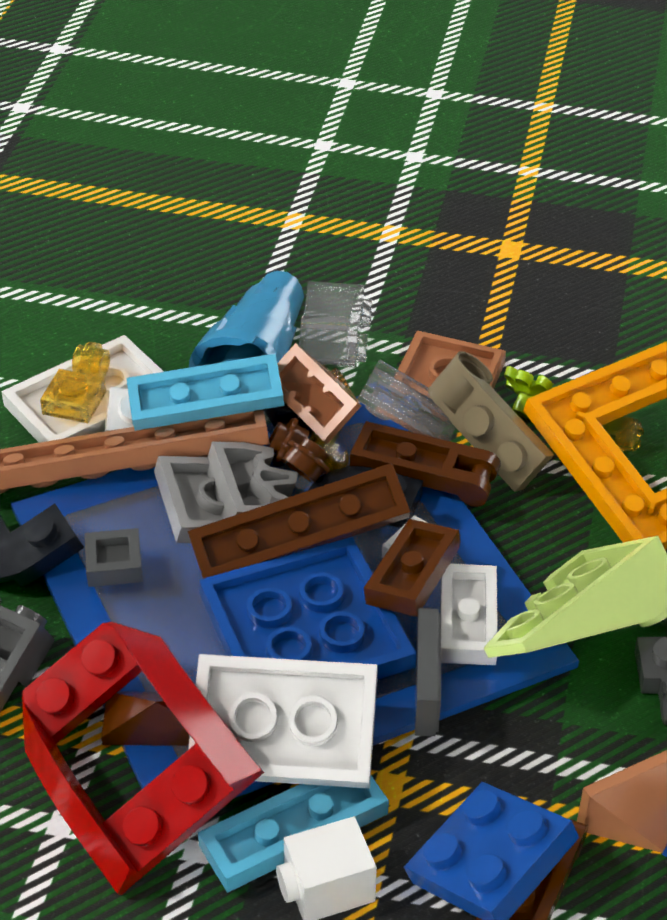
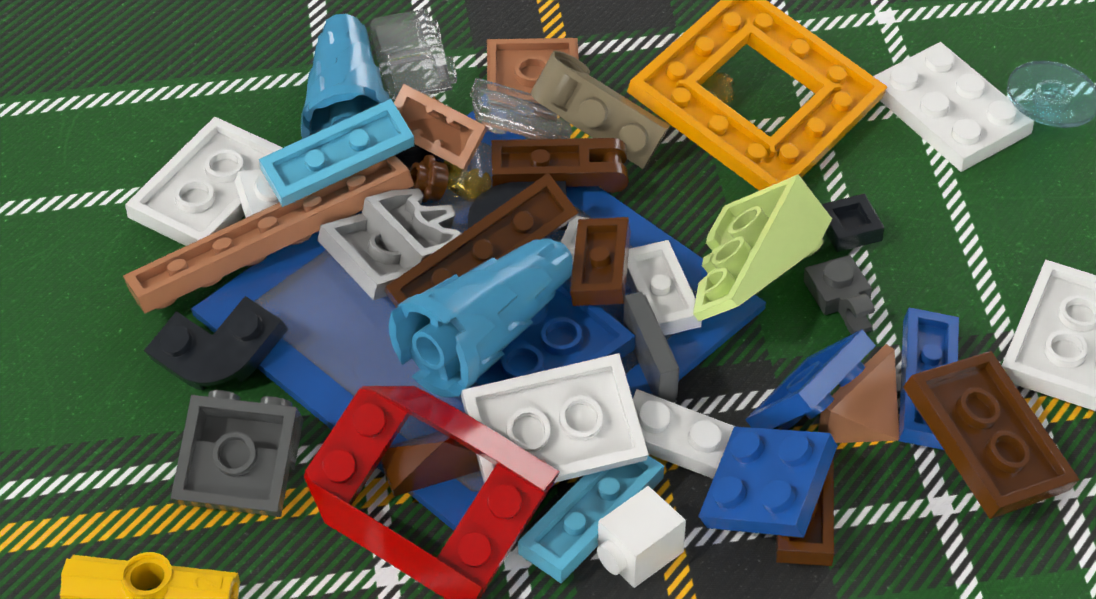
camera: 20 degrees left, 5 degrees up
(78, 392) = (204, 182): clear yellow plate -> none
(113, 557) = (322, 329): dark grey plate -> none
(238, 586) = (469, 319): none -> dark azure cone
(307, 459) = (457, 190): reddish brown plate -> none
(420, 769) = (681, 434): none -> white plate
(525, 387) = (616, 70): lime plant -> none
(579, 764) = (810, 384): none -> blue plate

